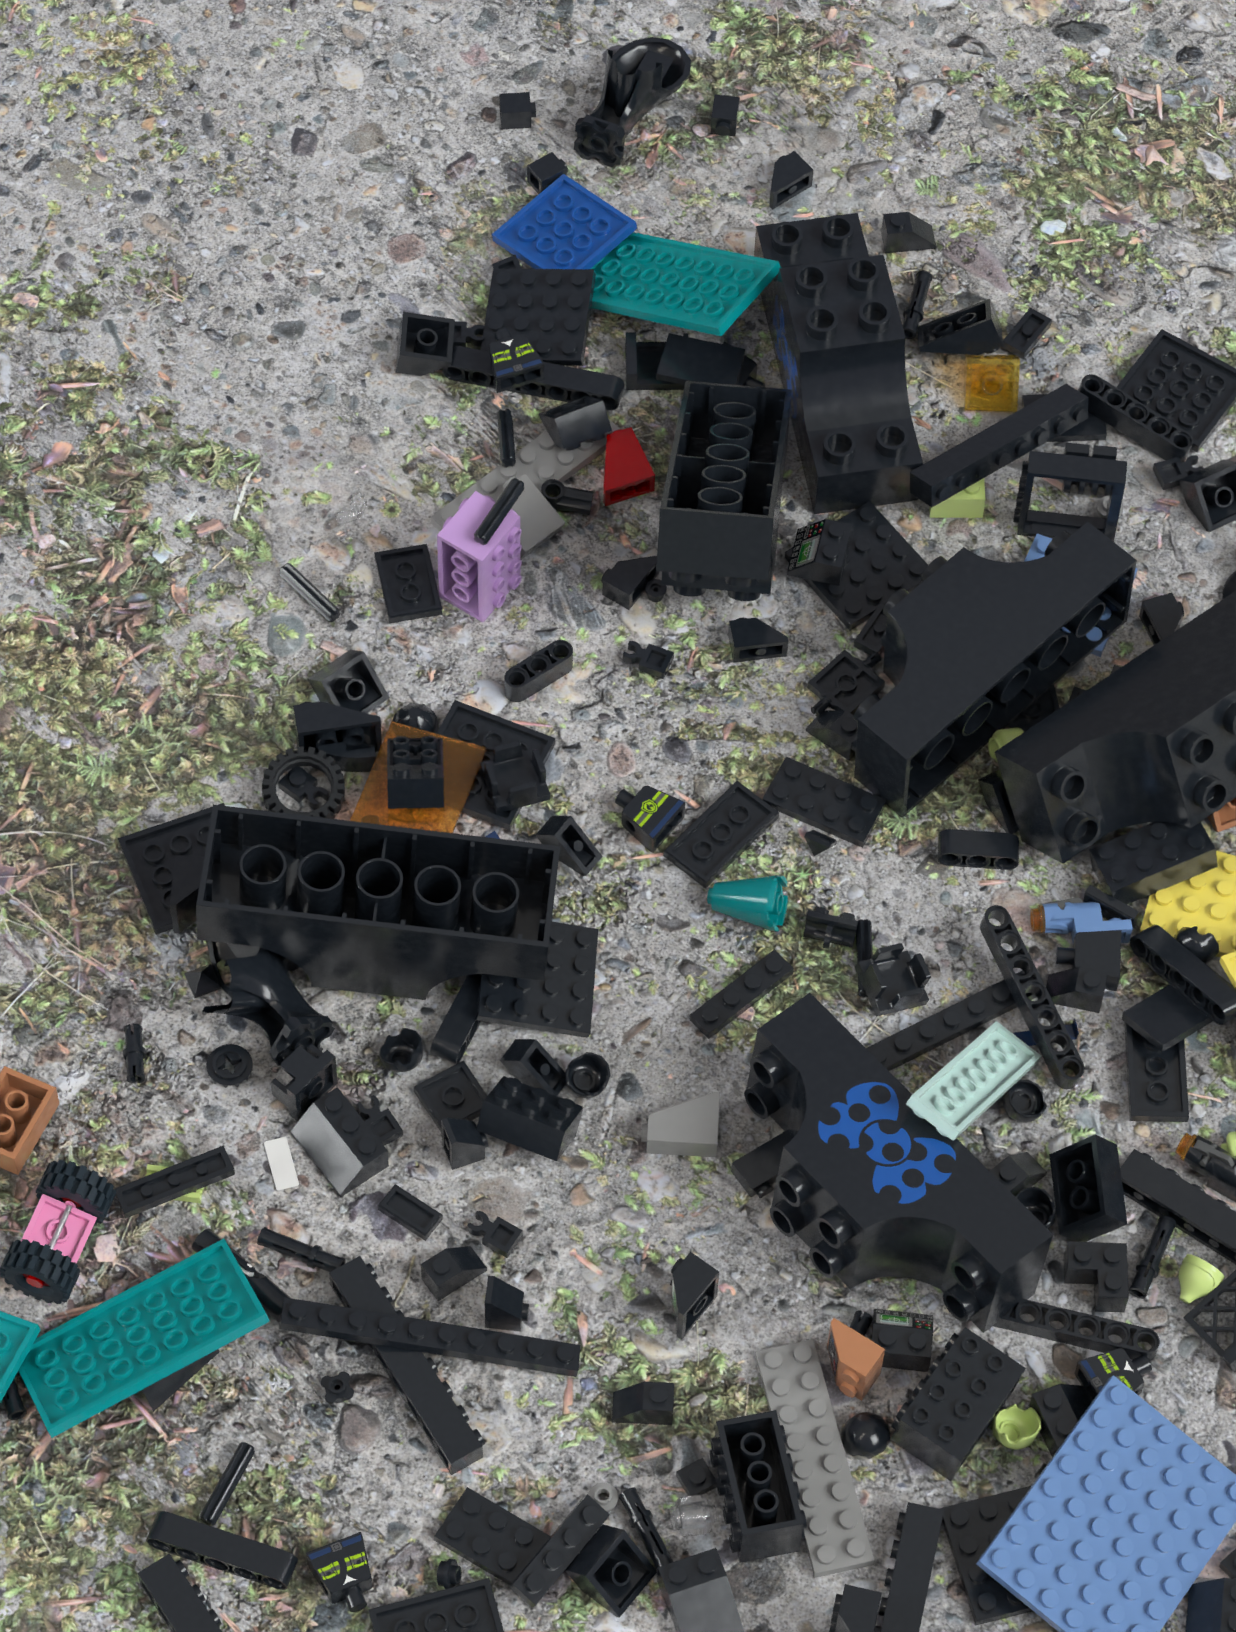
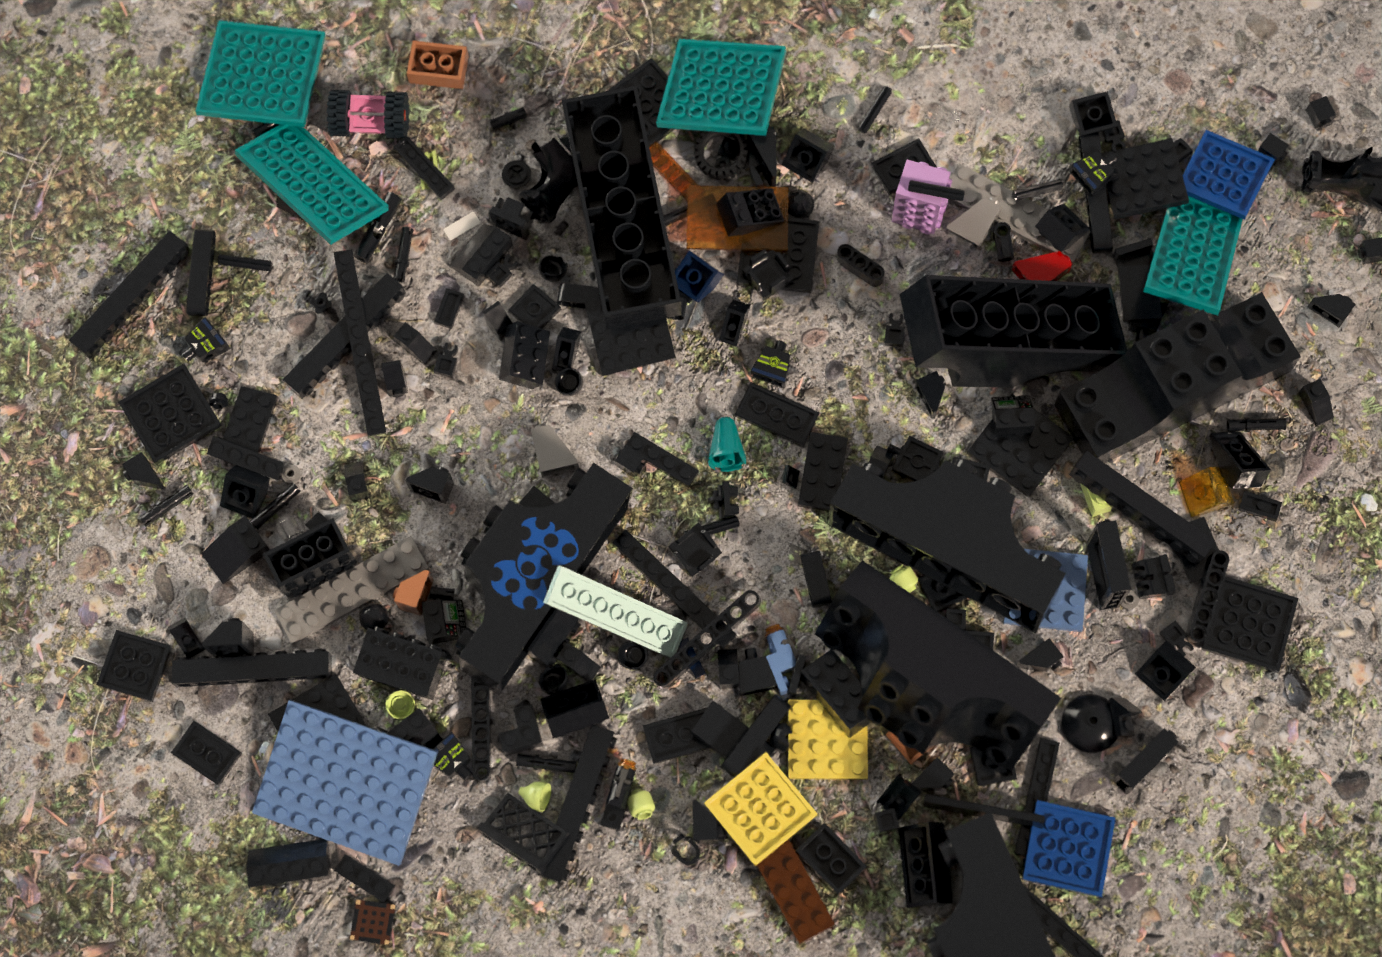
camera: 80 degrees right, 15 degrees up
(209, 745) = (721, 87): none -> teal plate
(734, 1030) = (630, 462): none -> black brick

